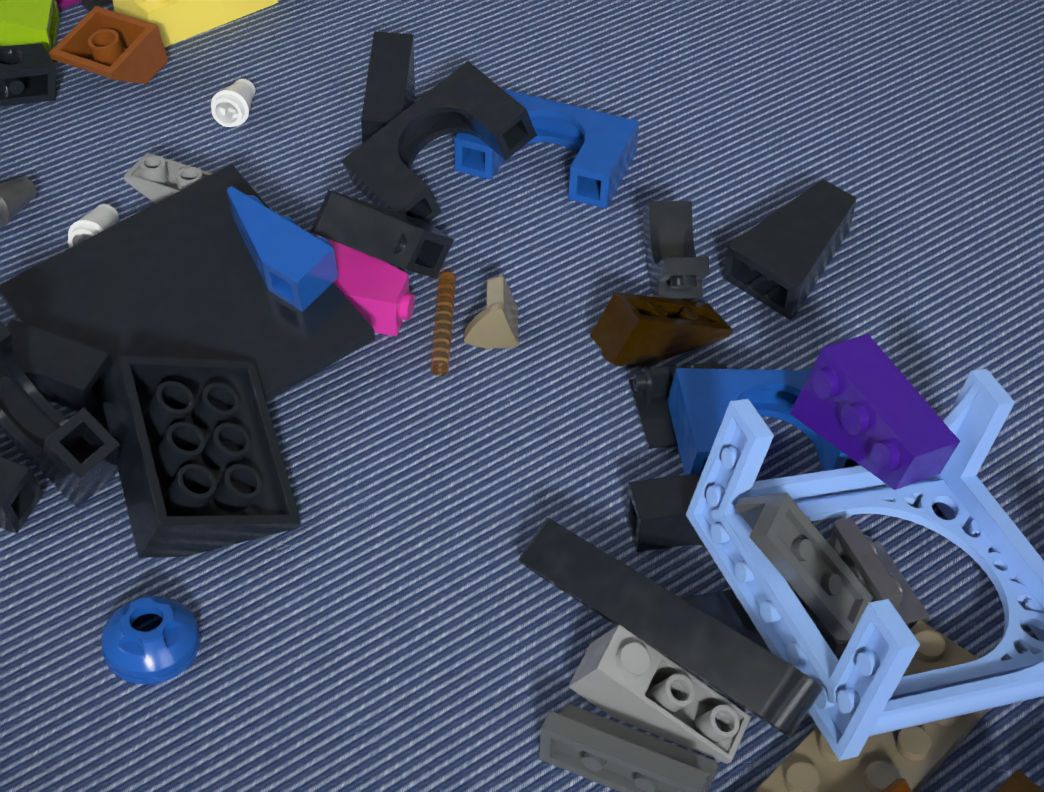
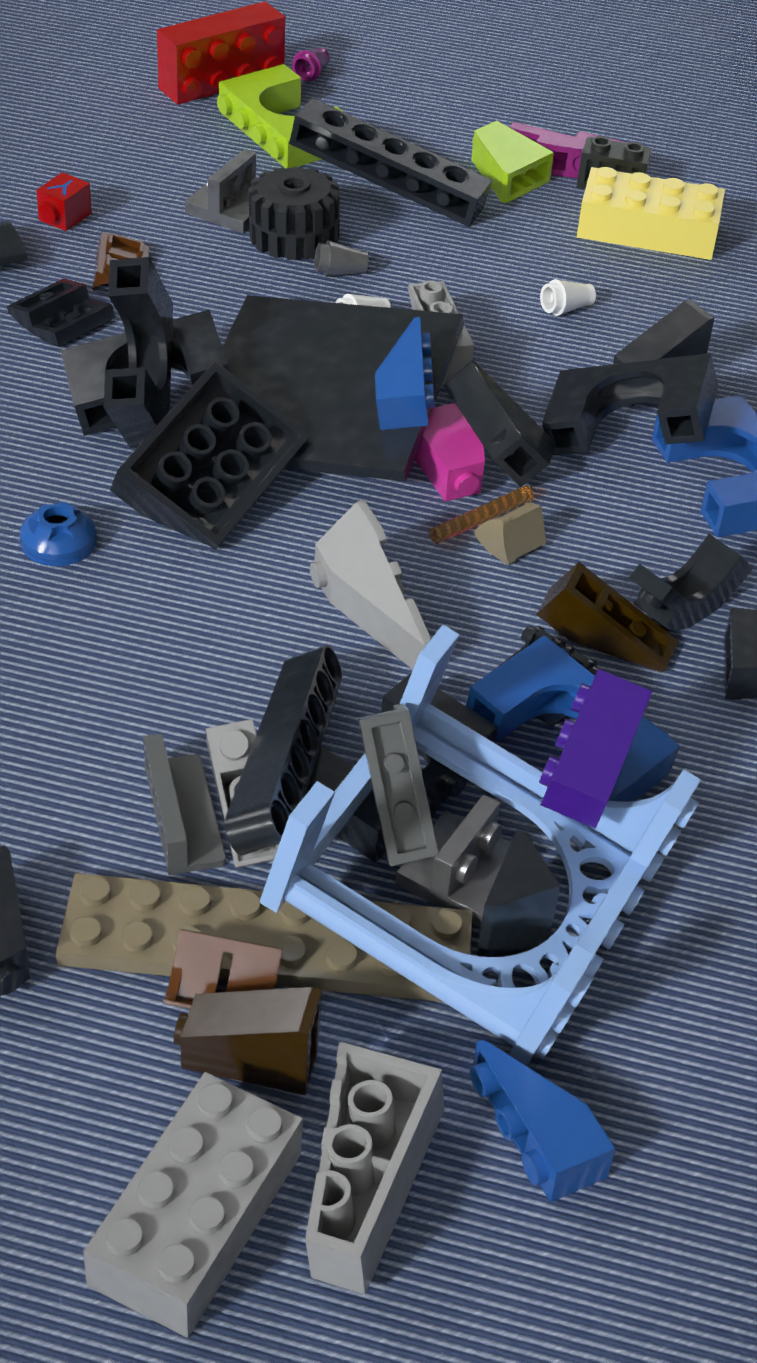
camera: 50 degrees right, 0 degrees up
(113, 47) = (530, 212): dark orange slope -> none
(471, 444) = (366, 586): none -> light grey wedge
(955, 577) = (519, 903): none -> black slope

